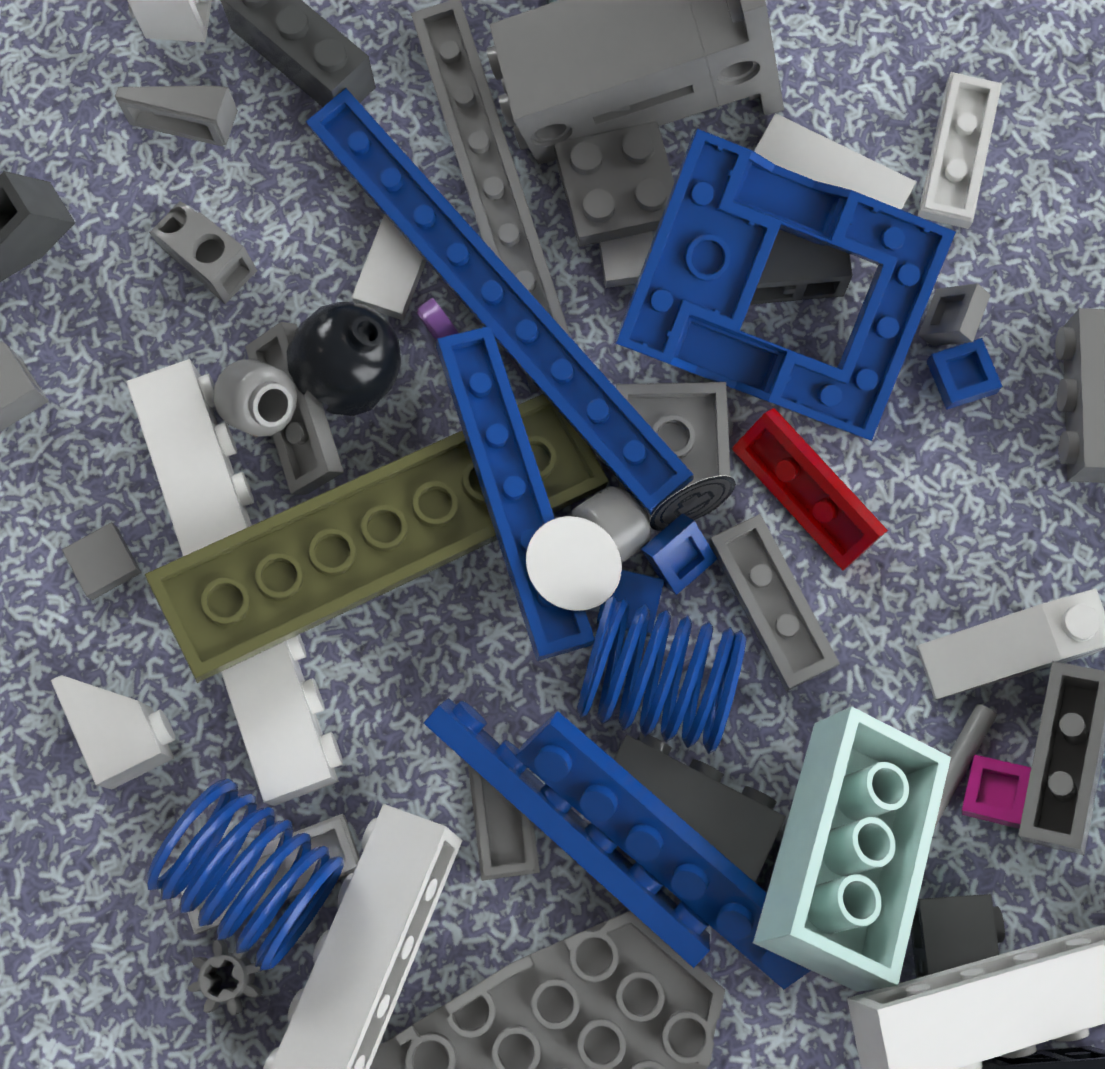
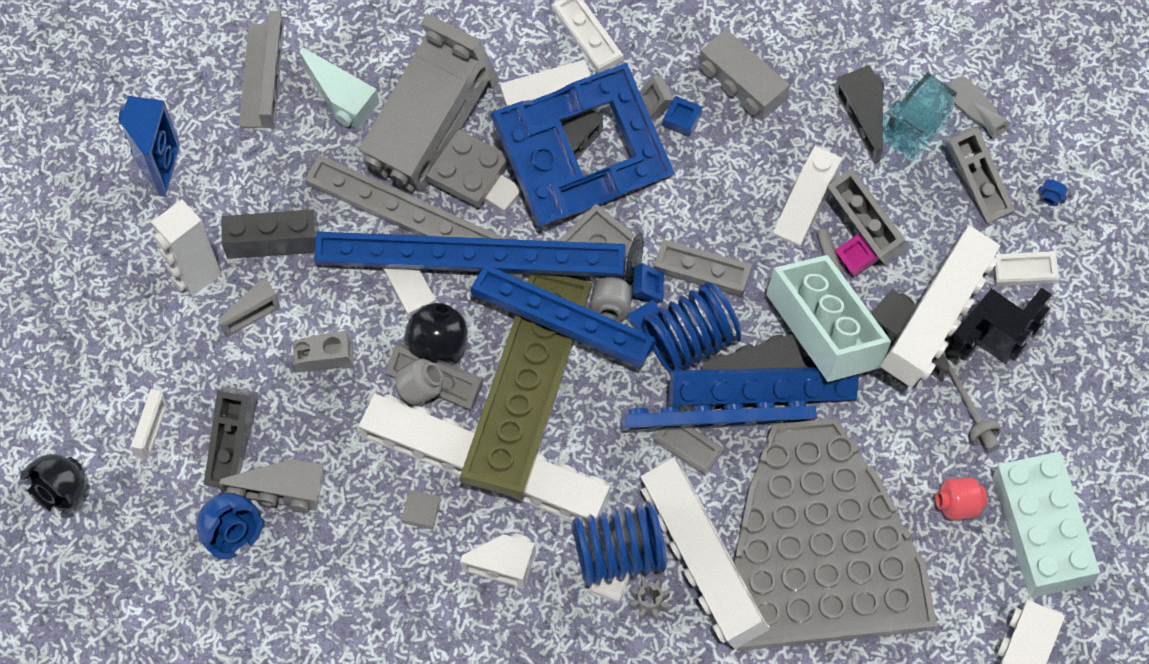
camera: 45 degrees left, 10 degrees down
(435, 319) = (456, 289): medium lavender tile -> none
(573, 563) = (616, 318): white sticker -> none
(809, 489) = (670, 213): red plate -> none

